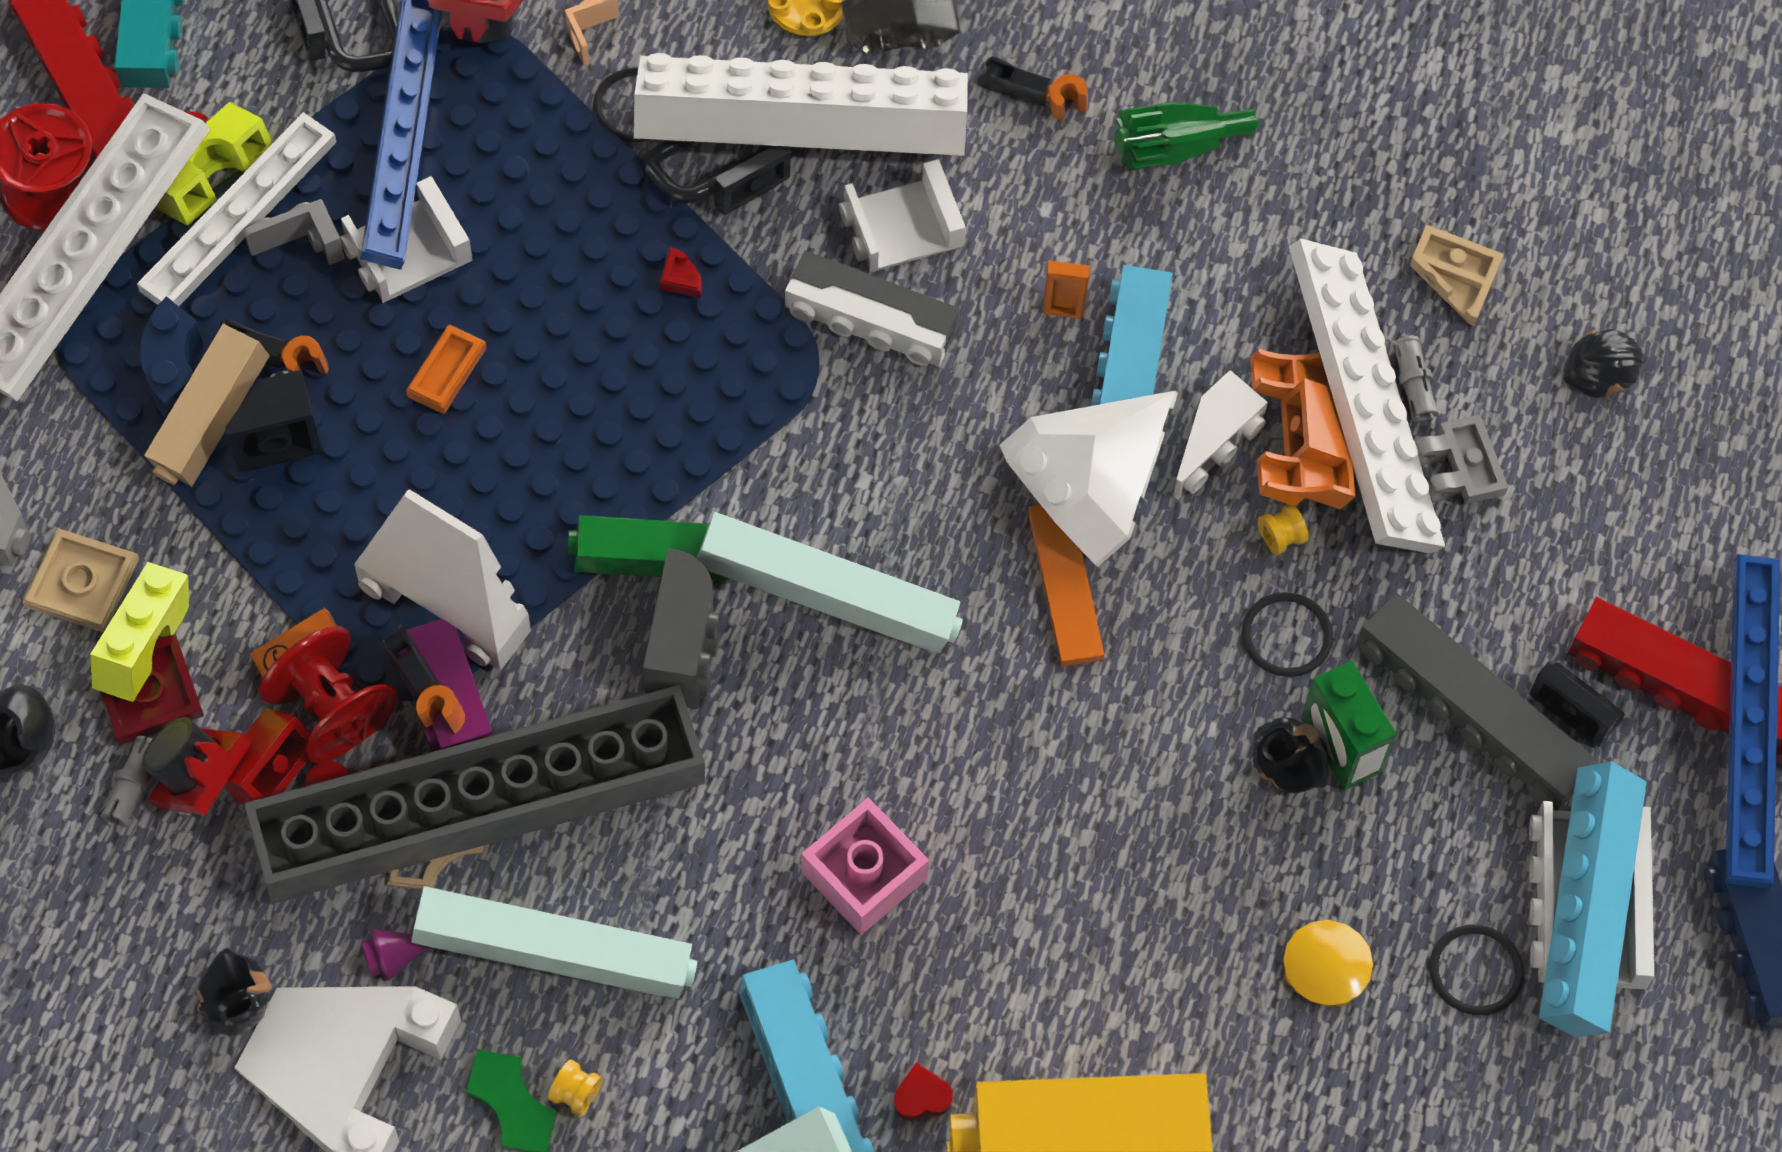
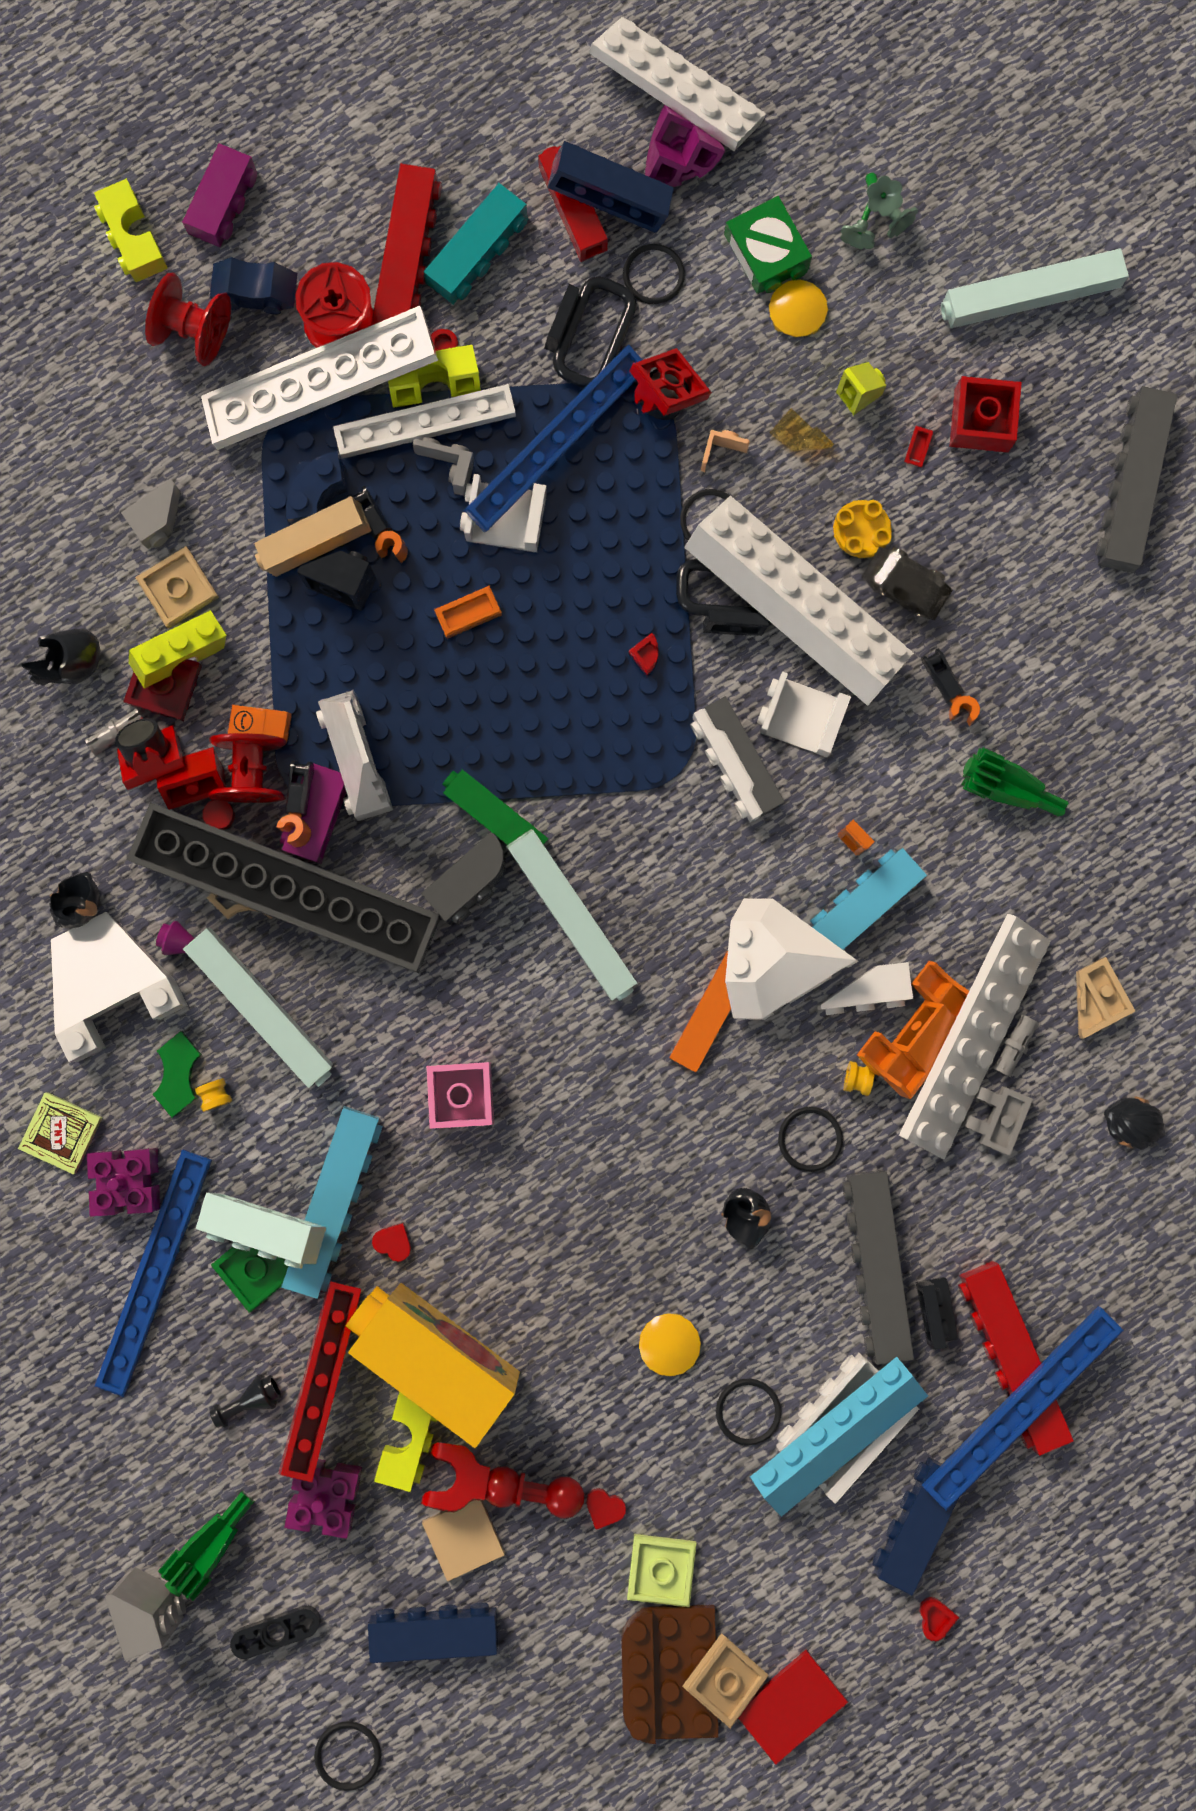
camera: 40 degrees right, 20 degrees up
(1349, 724) = (789, 1230): green brick -> none

